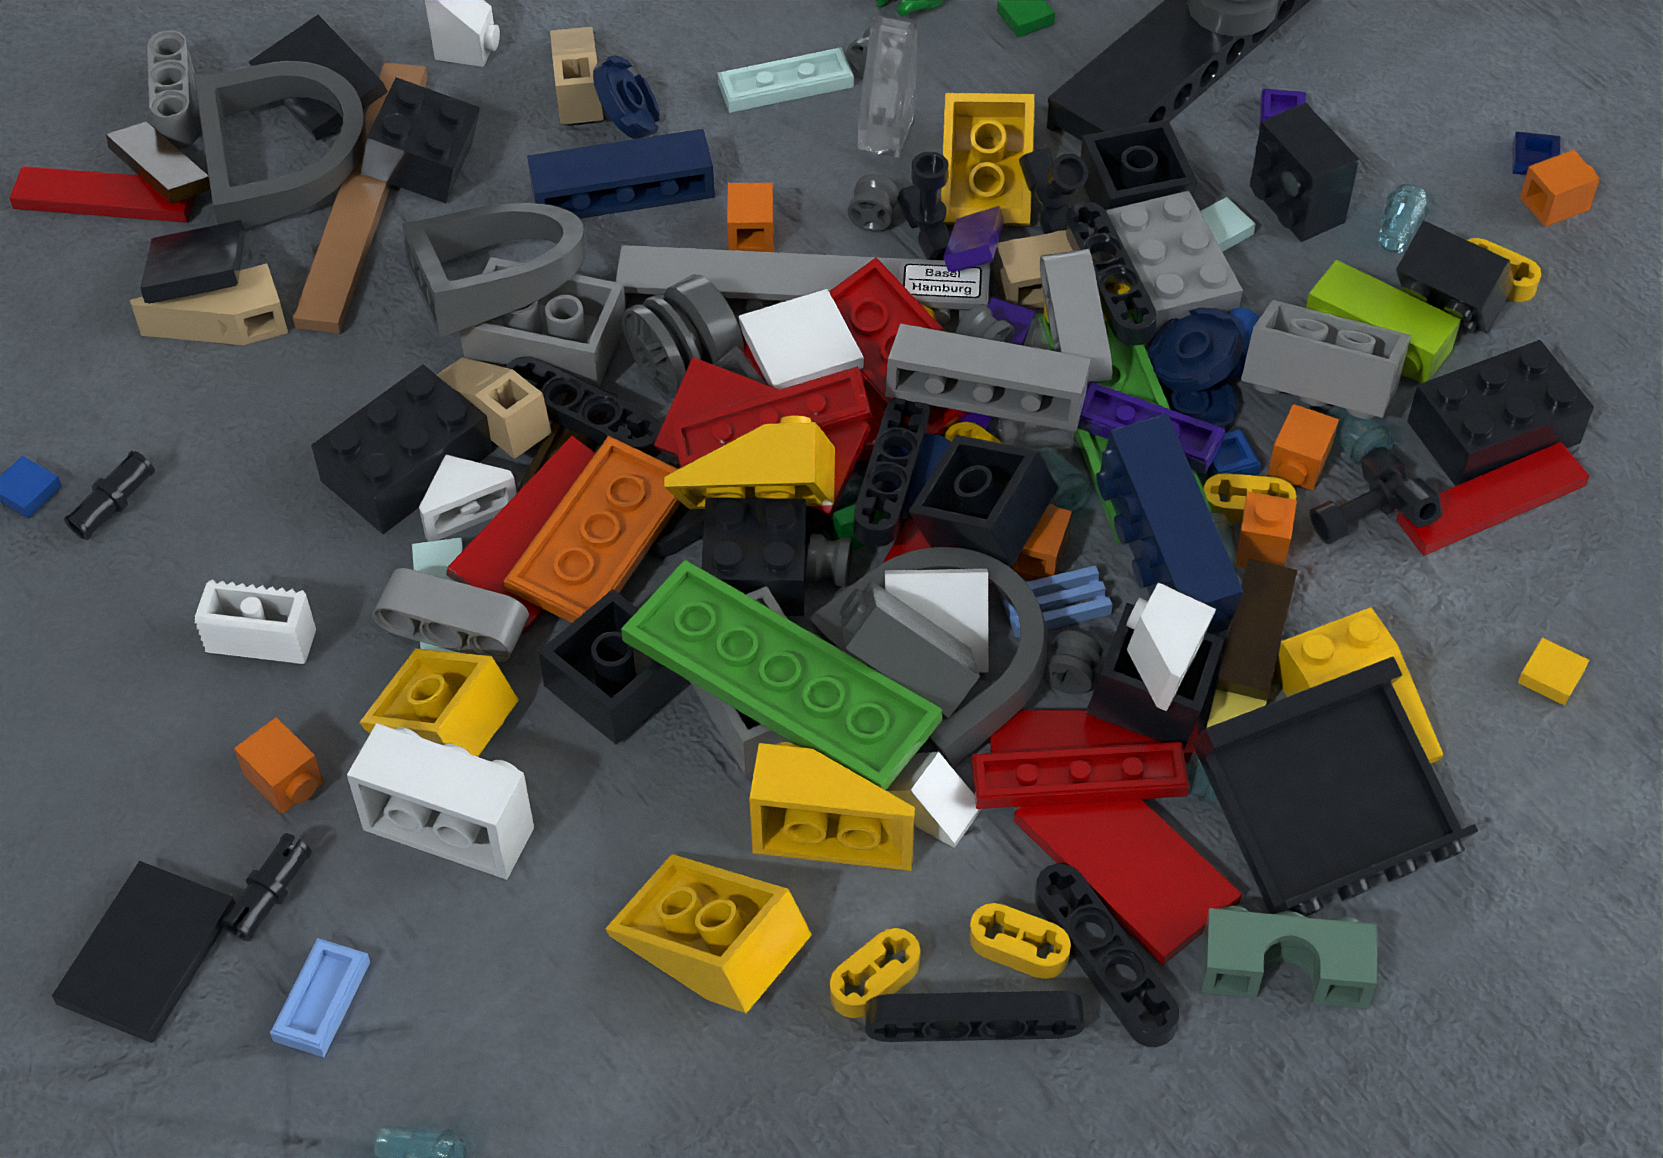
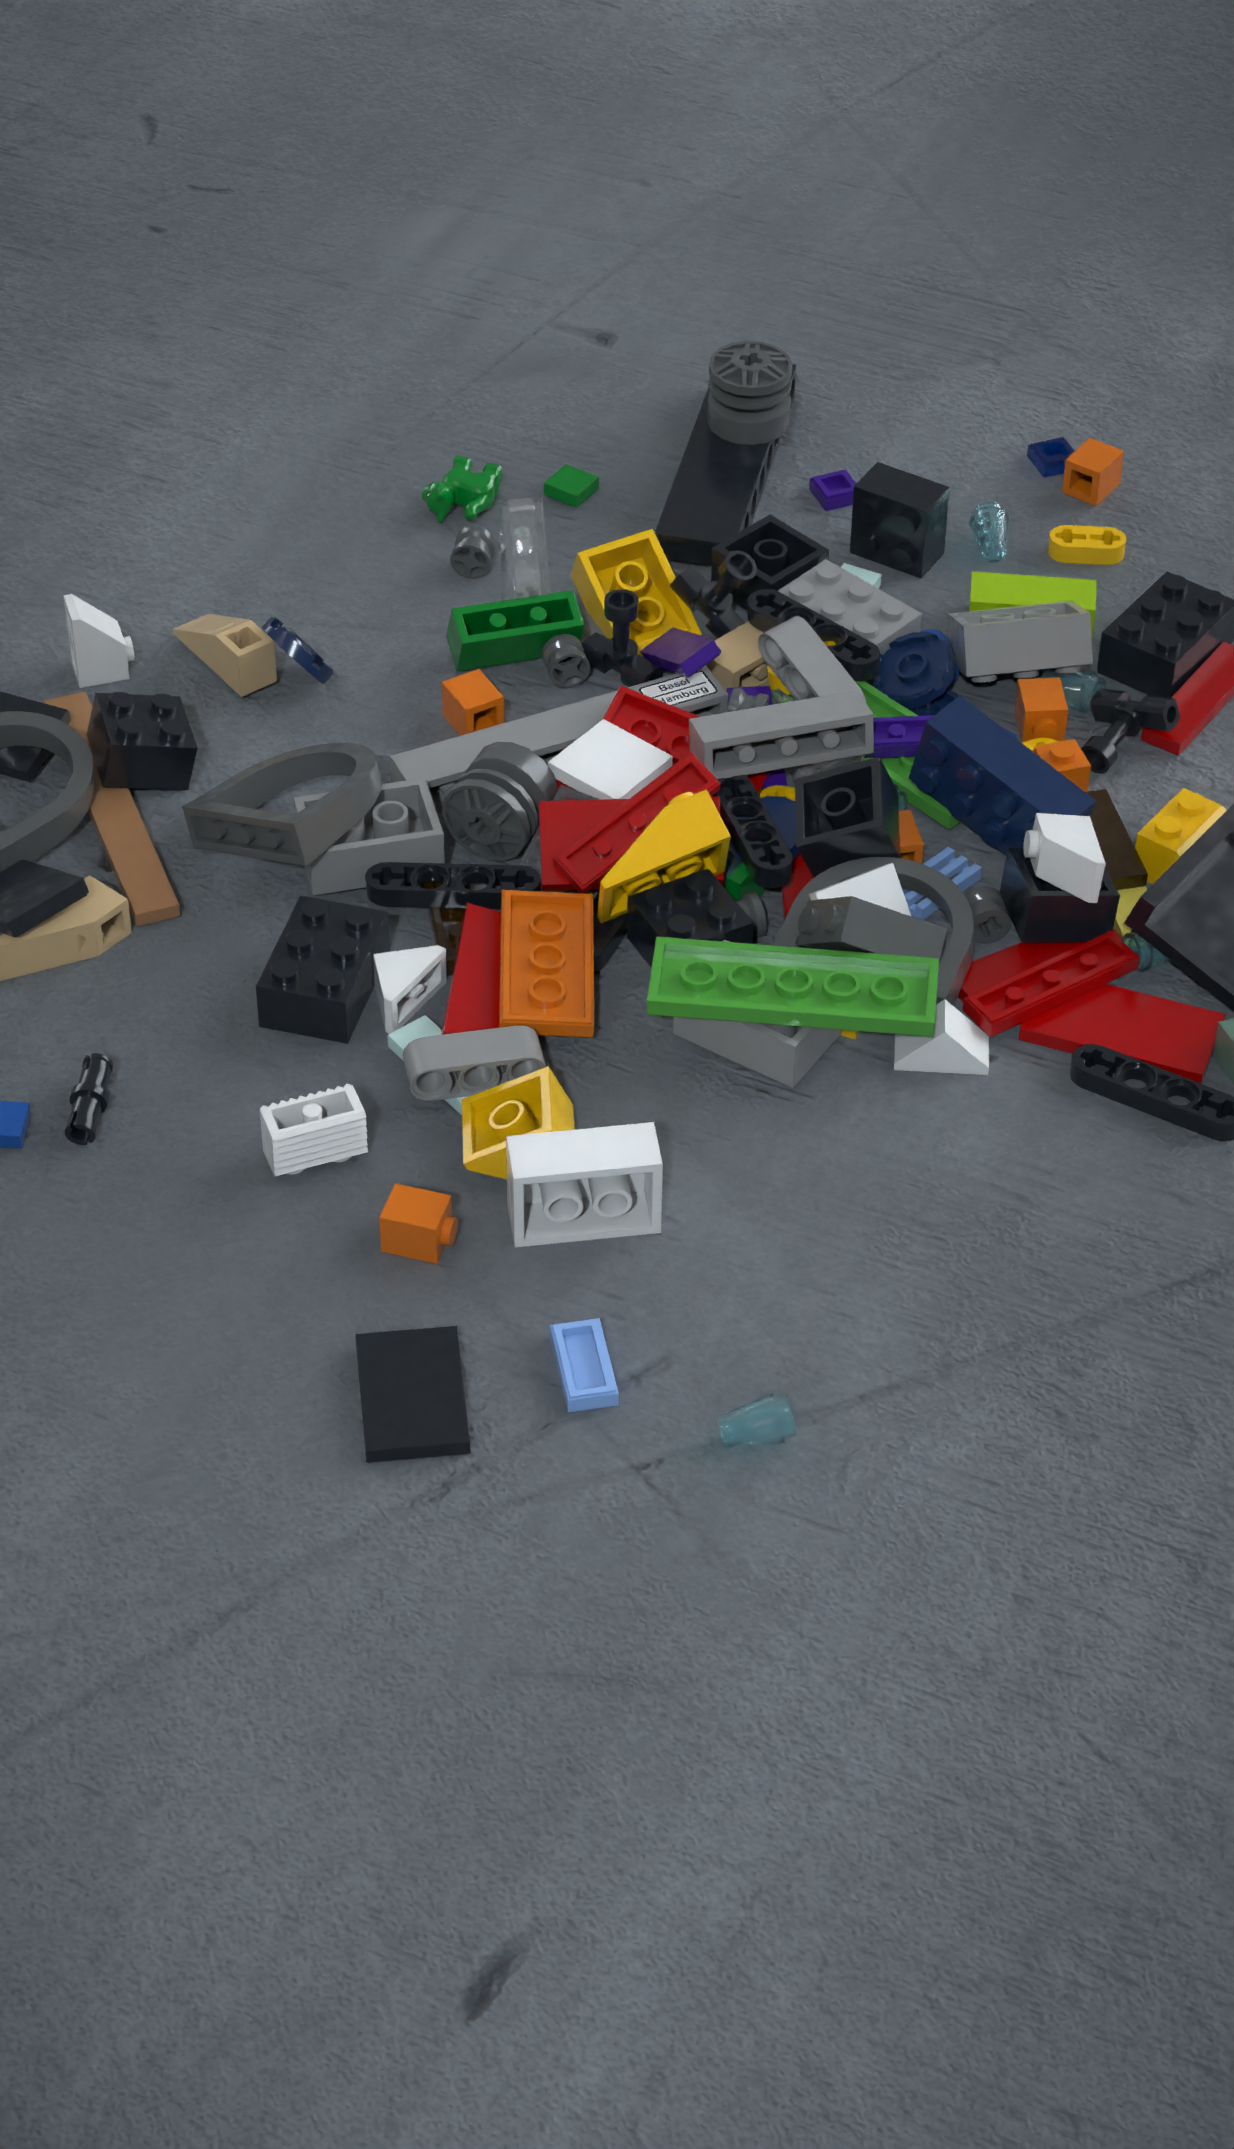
camera: 30 degrees left, 10 degrees down
(266, 887) = (478, 1309): black pin -> none
(512, 404) = (401, 892): tan slope -> none
(602, 674) = (635, 1052): black brick -> none
(624, 174) = (339, 708): dark blue brick -> none
(713, 930) = (859, 1189): yellow slope -> none
(785, 80) = (408, 600): light aqua tile -> none
(825, 812) = (891, 1073): yellow slope -> none
(838, 150) = (510, 629): none -> green brick
(867, 964) = (1008, 1174): yellow beam -> none
(974, 1016) = (1097, 1165): black beam -> none
(1019, 940) = (1088, 1109): yellow beam -> none
(1456, 277) = (1075, 546): black brick -> none

